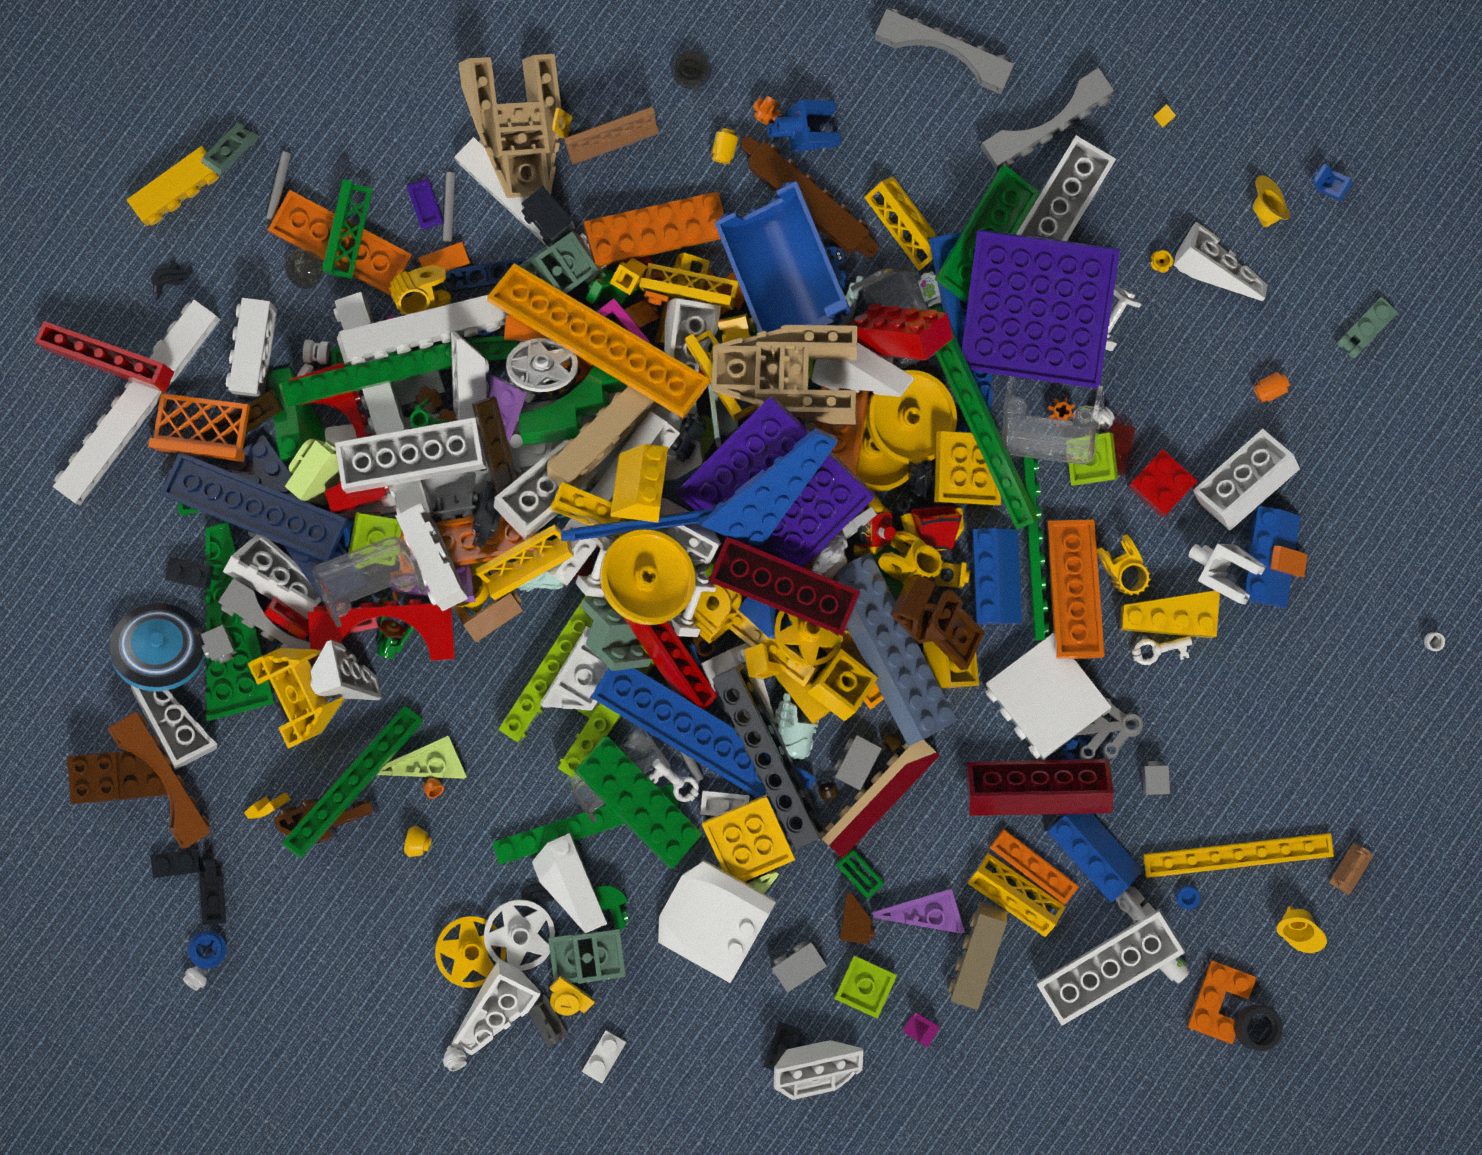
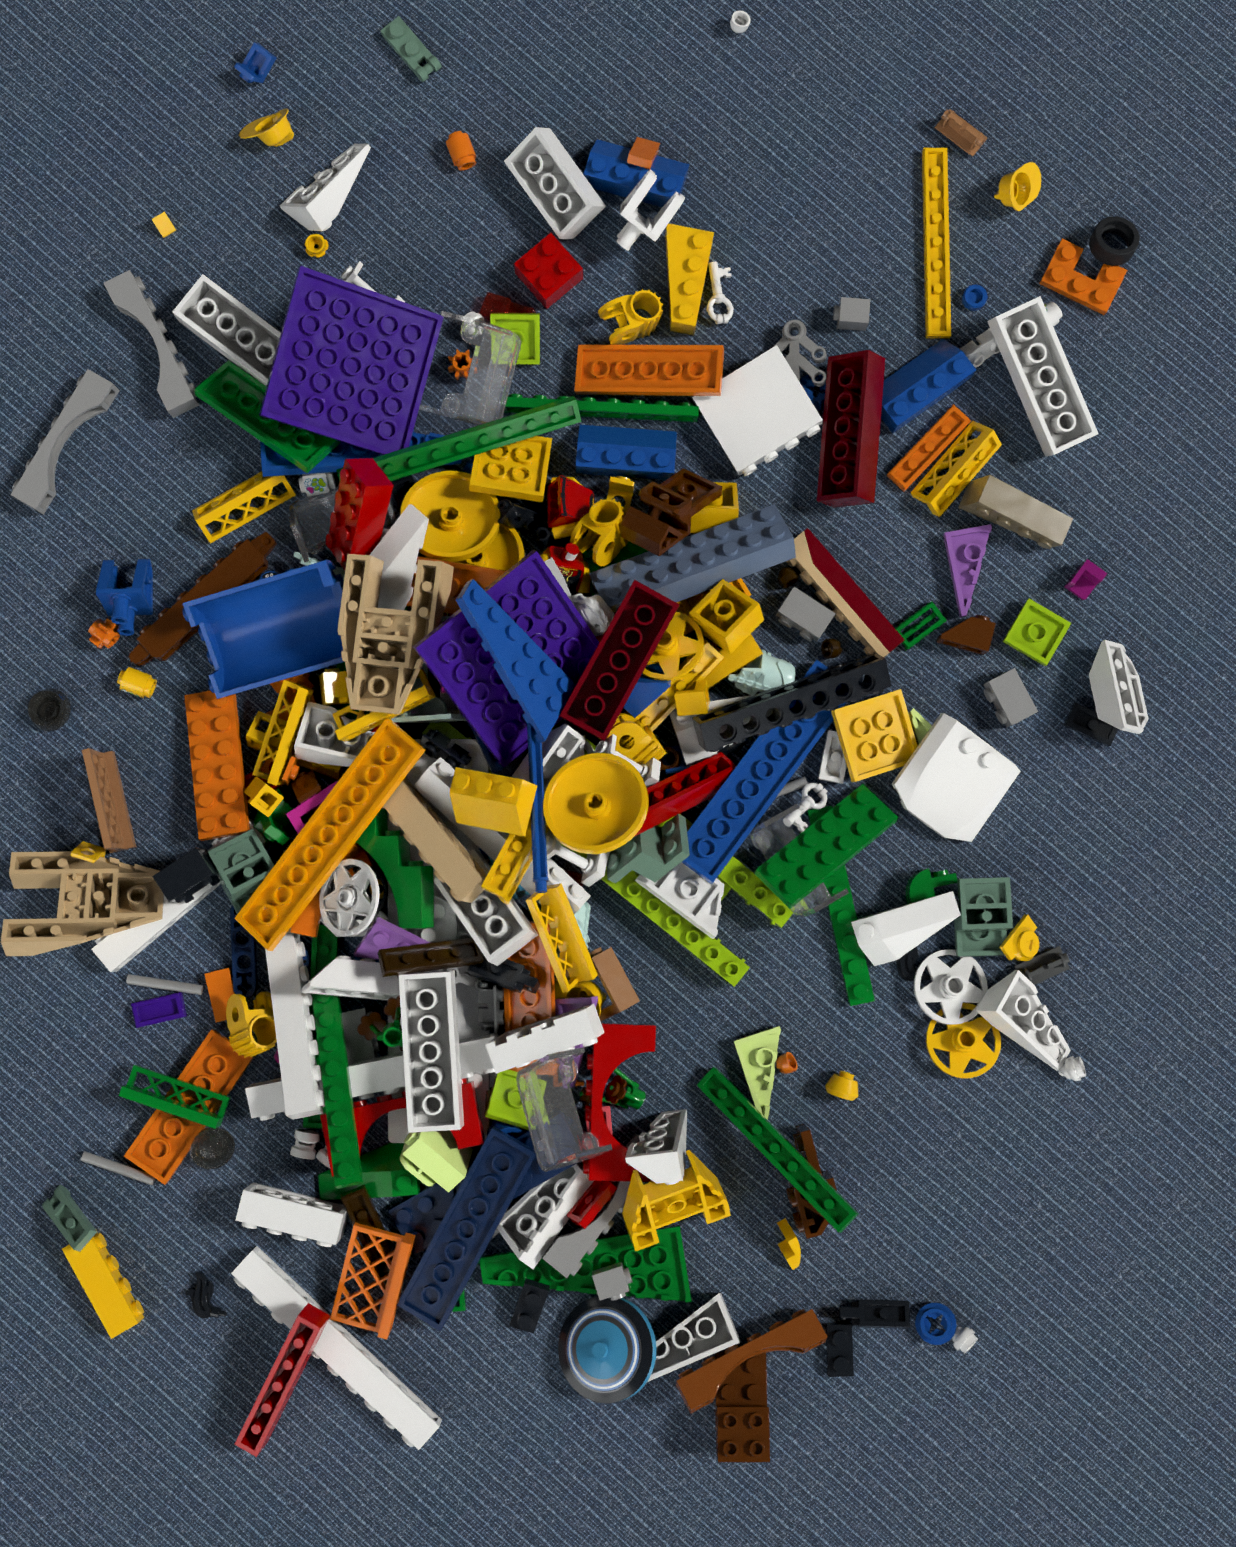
camera: 90 degrees left, 0 degrees up
(604, 1056) = (1084, 911): white plate -> none

